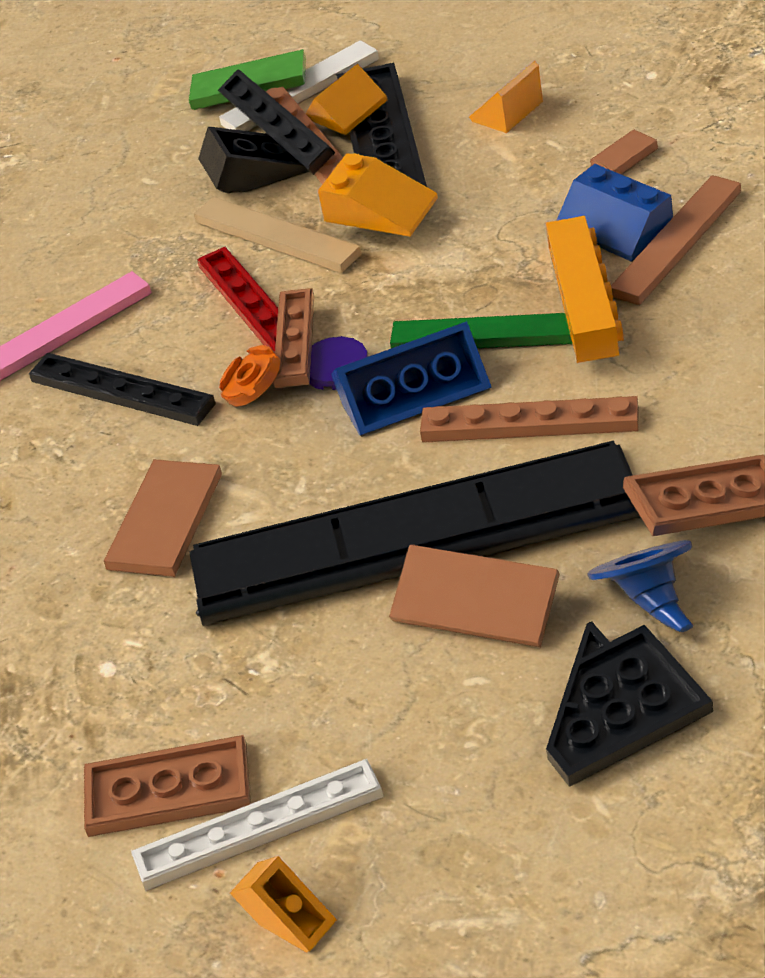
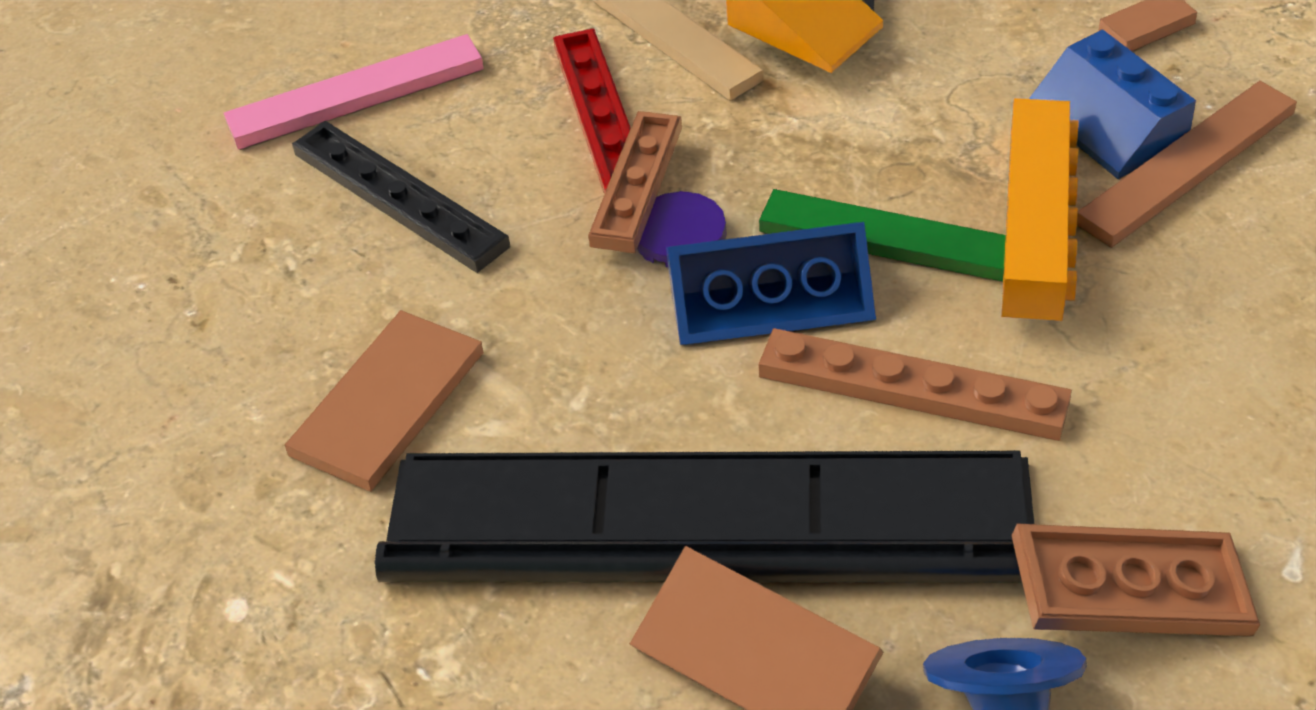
camera: 10 degrees right, 5 degrees up
(250, 376) = (561, 221): orange tile -> none

